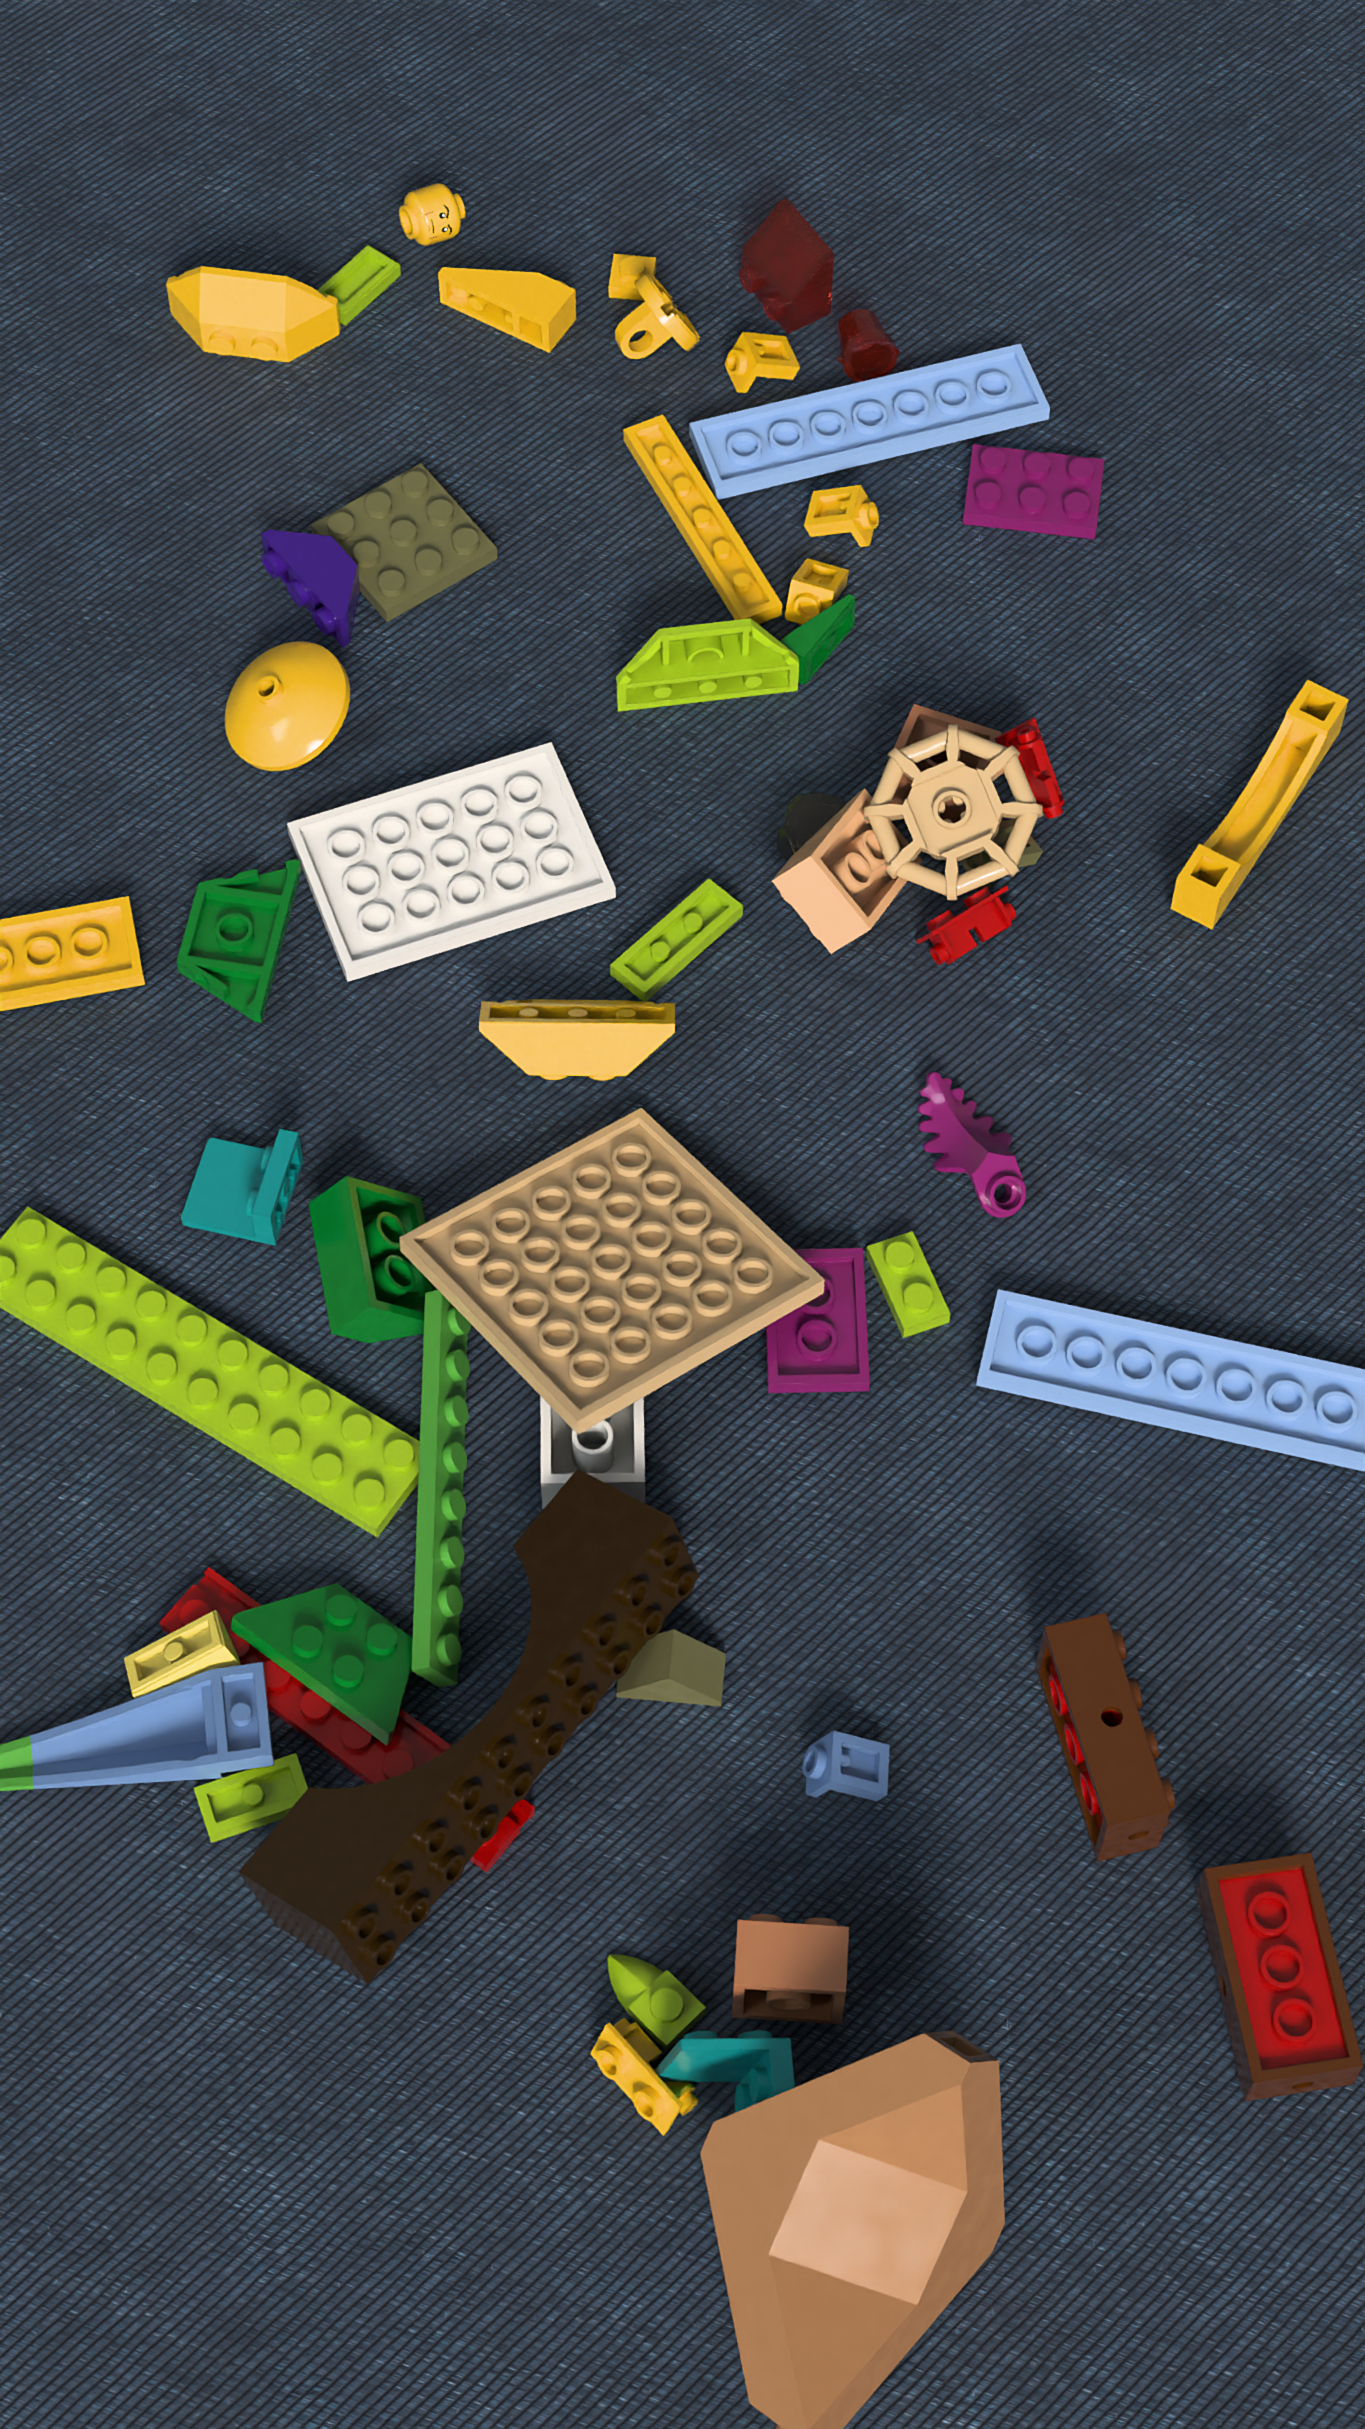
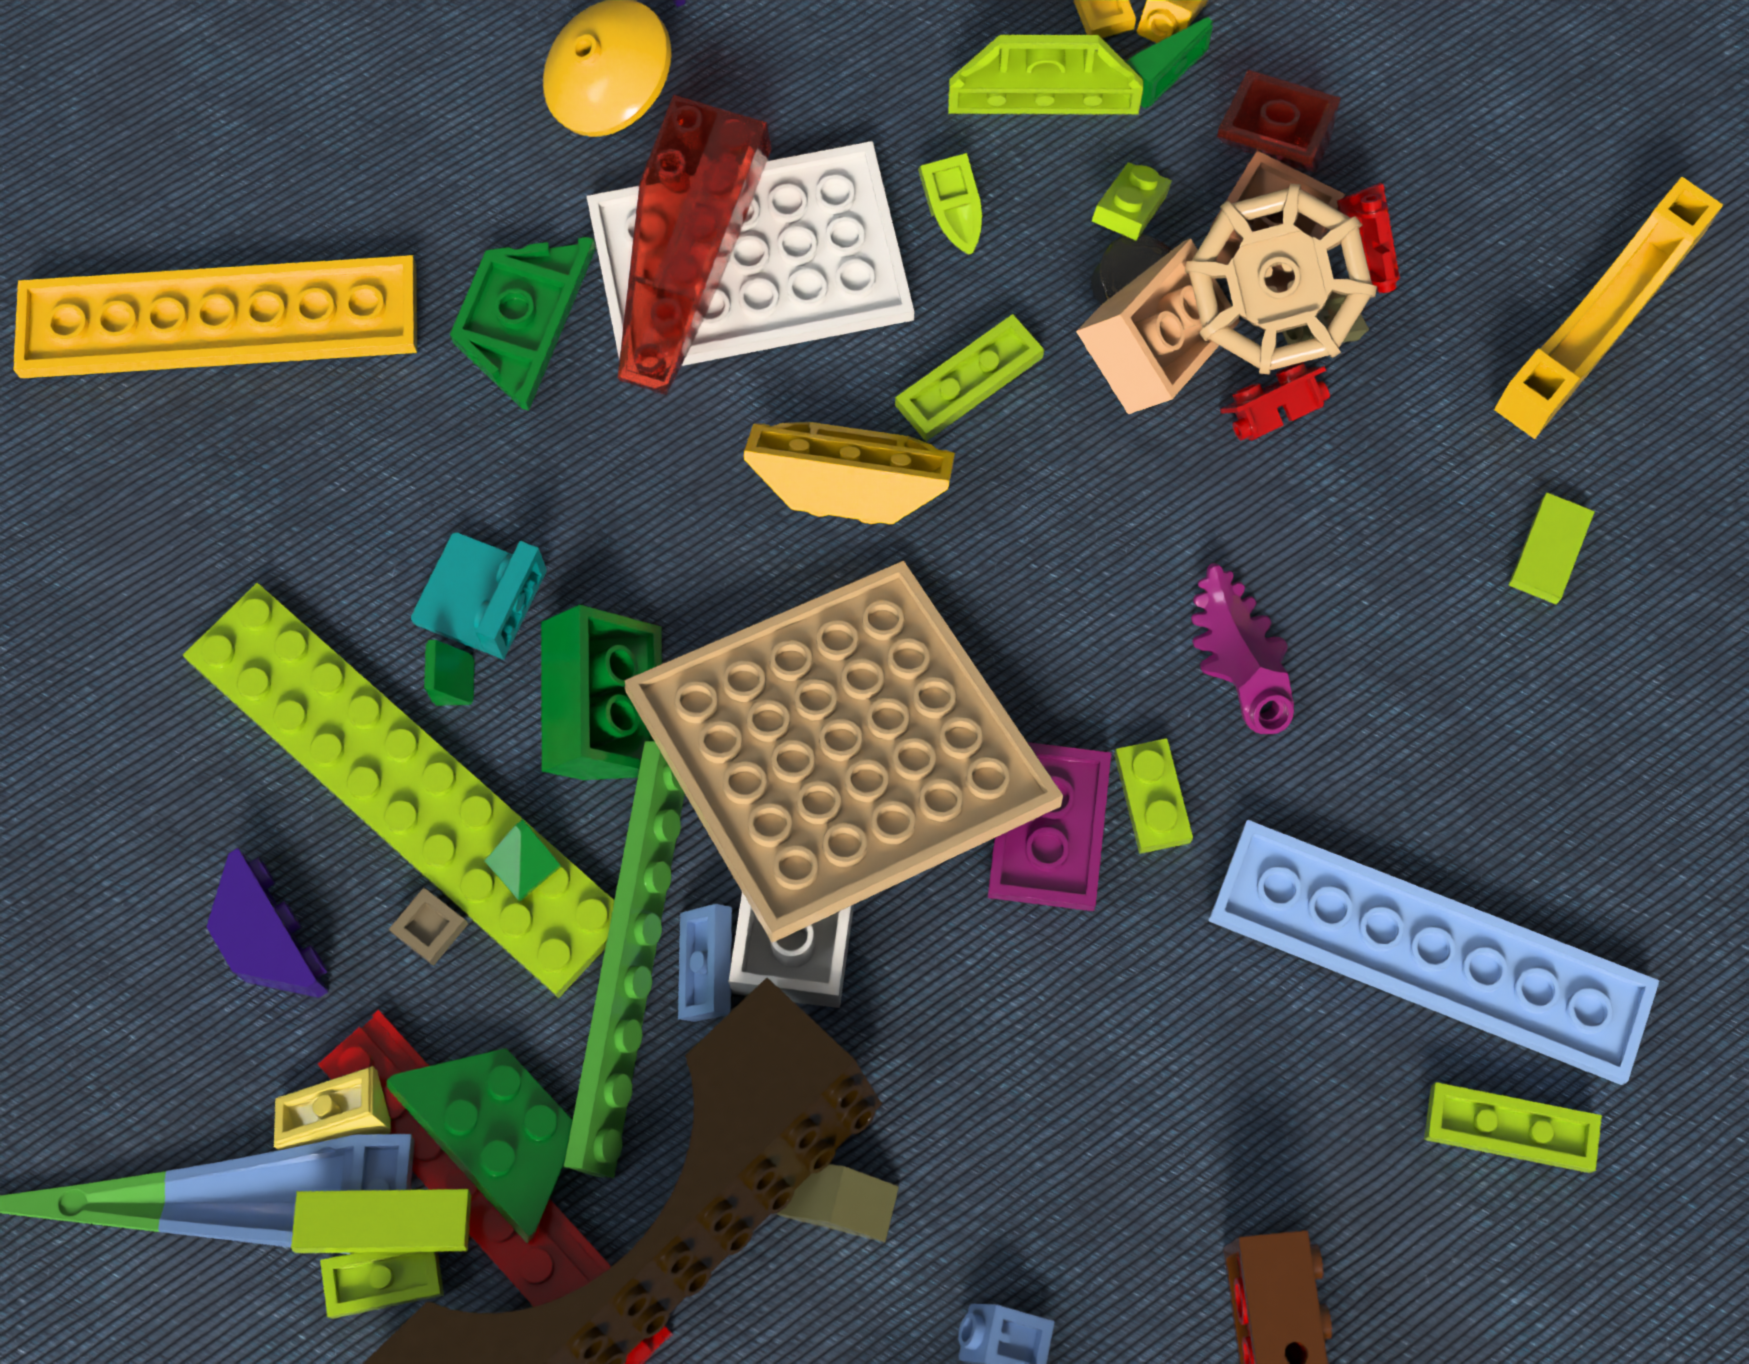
camera: 10 degrees right, 10 degrees up
(88, 1515) = (259, 934): none -> dark purple slope
(226, 1264) = (448, 674): none -> green slope
(244, 1486) = (428, 926): none -> dark tan plate
(250, 1733) = (381, 1221): none -> lime tile
(326, 1411) = (522, 861): none -> green slope
(390, 838) = (685, 233): none -> clear red wedge
(512, 1481) = (704, 963): none -> medium blue plate
(636, 785) = (954, 200): none -> lime plate
(804, 764) = (1132, 200): none -> lime plate
(931, 676) = (1280, 120): none -> clear red slope
(1241, 1022) = (1551, 548): none -> lime tile
(1283, 1521) = (1513, 1127): none -> lime plate

